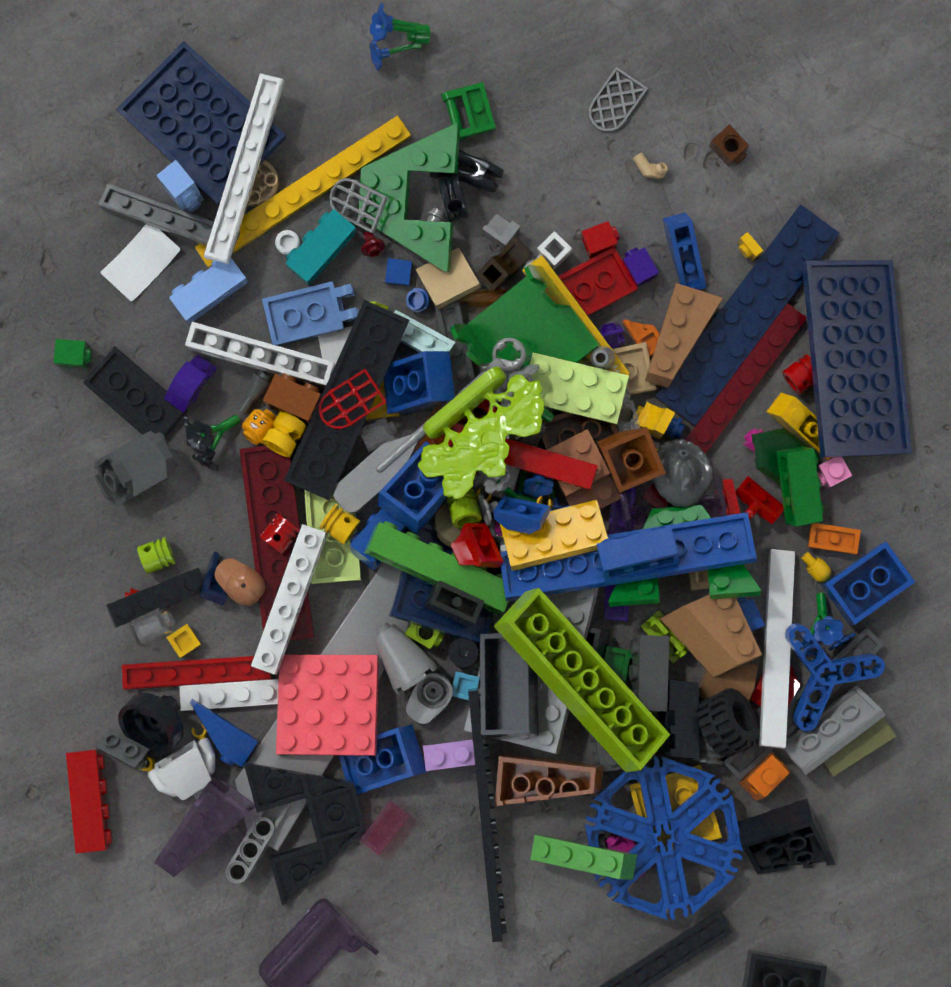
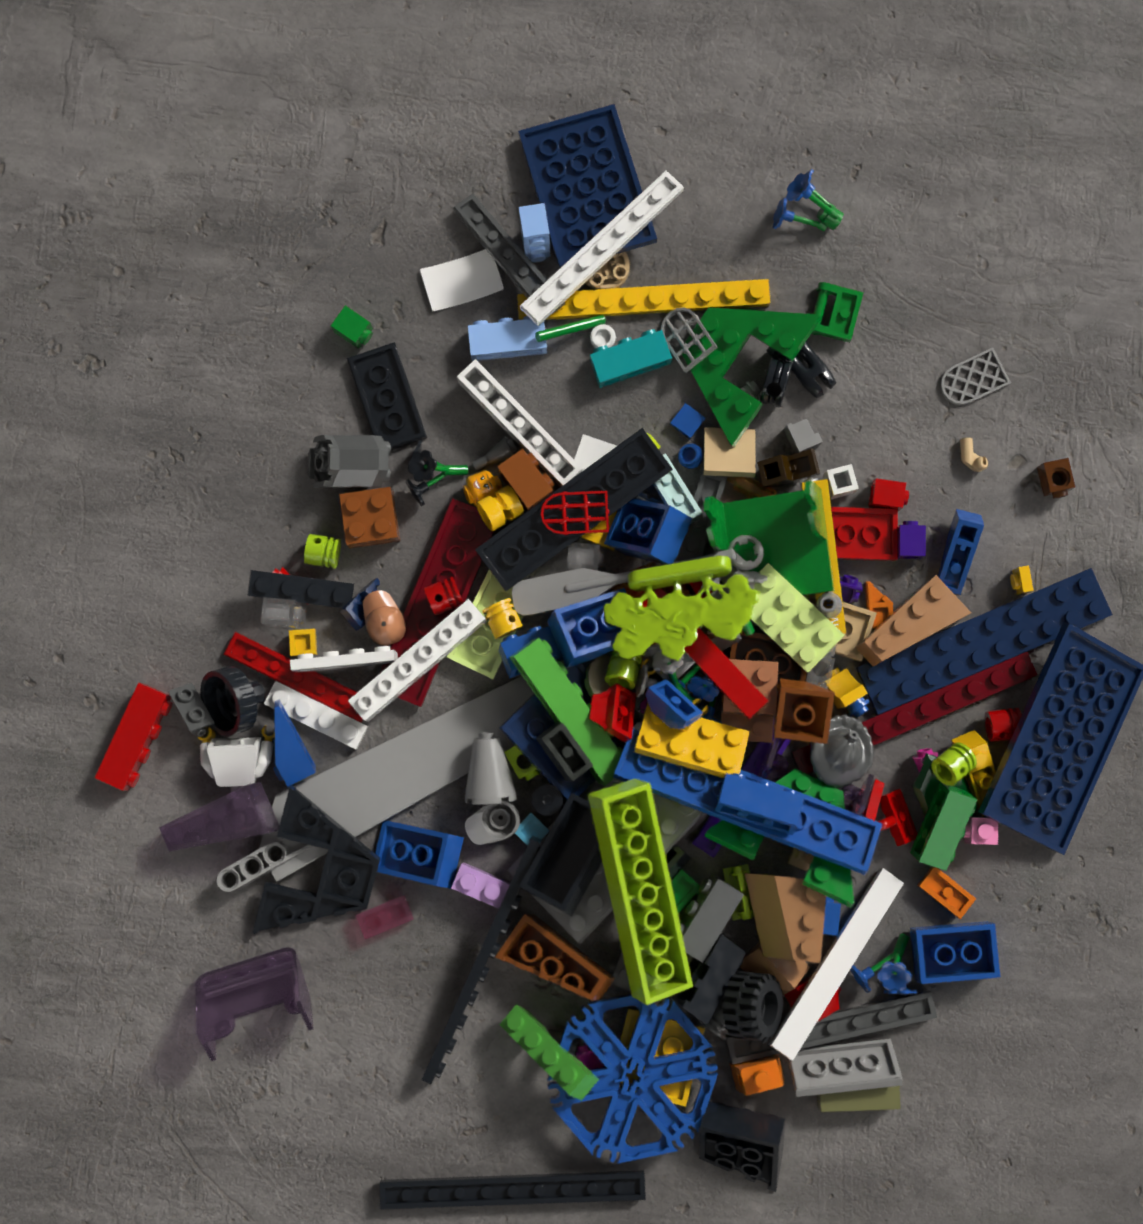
camera: 30 degrees right, 0 degrees up
(179, 504) = (369, 517): none -> dark orange brick
(188, 382) = (441, 412): dark purple brick -> none
(219, 640) = (333, 660): none -> white plate
(256, 250) = (570, 328): none -> green bar
(308, 312) = (585, 411): medium blue tile -> none
(328, 705) = (397, 776): coral plate -> none
(372, 247) = (677, 385): dark red plate -> none
(779, 428) = (954, 764): none -> lime piece
(817, 567) = (915, 909): yellow cylinder -> none
(817, 667) = (863, 1003): blue piece -> none

